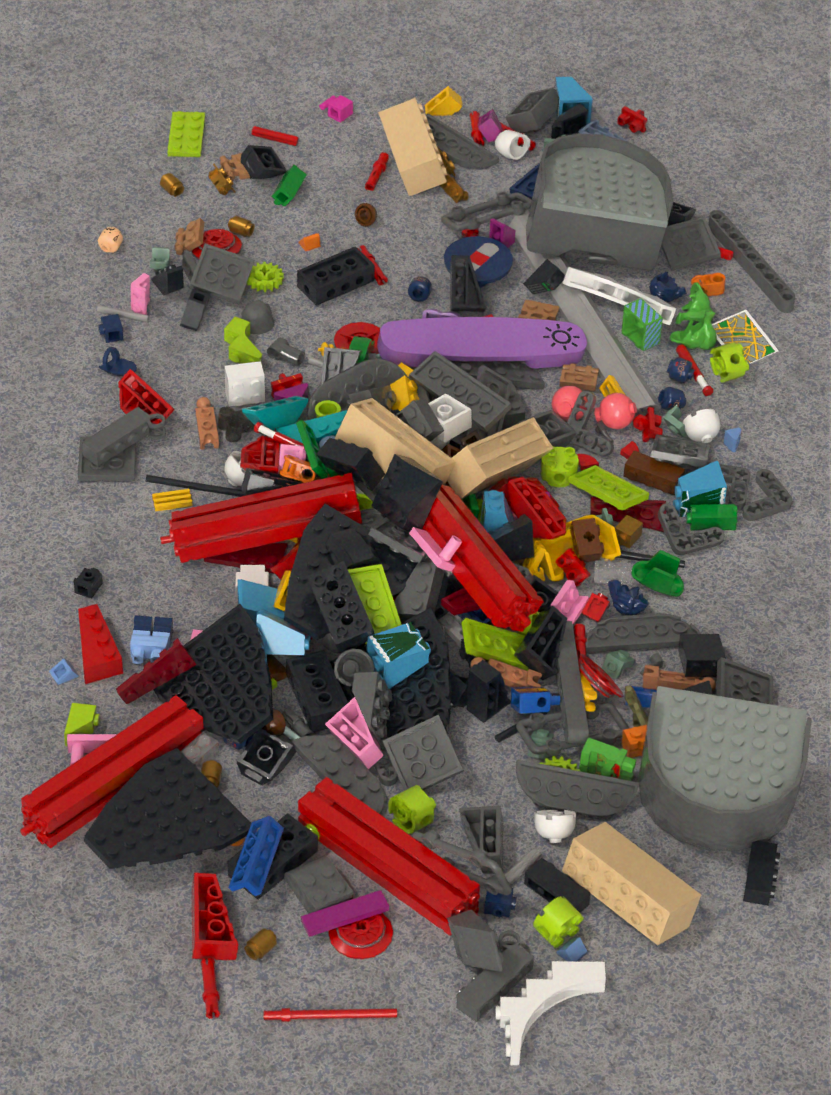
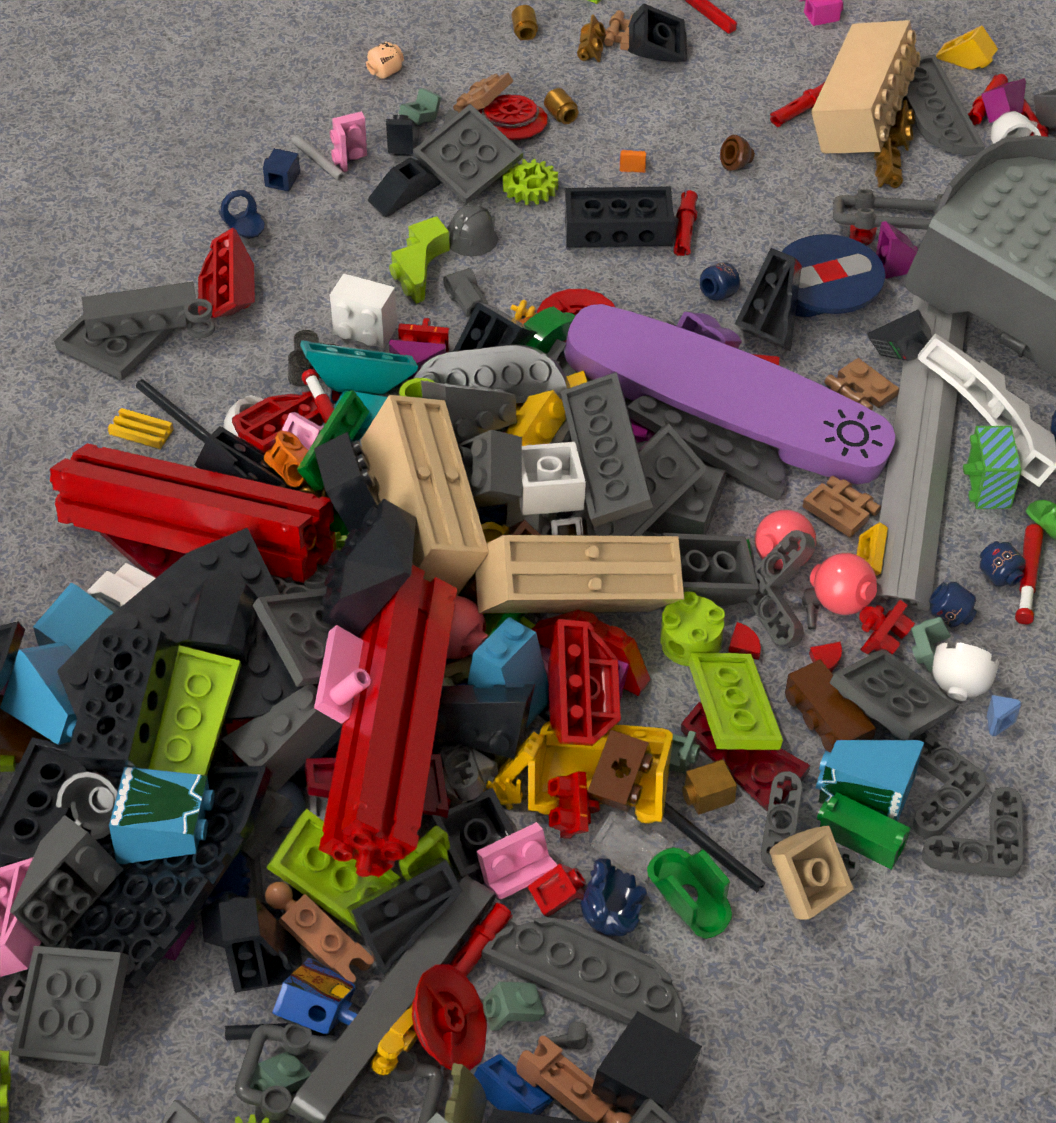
camera: 35 degrees right, 5 degrees up
(206, 423) = (275, 345): nougat plate -> none
(288, 186) = (666, 77): green brick -> none
(706, 542) = (811, 871): none -> tan brick

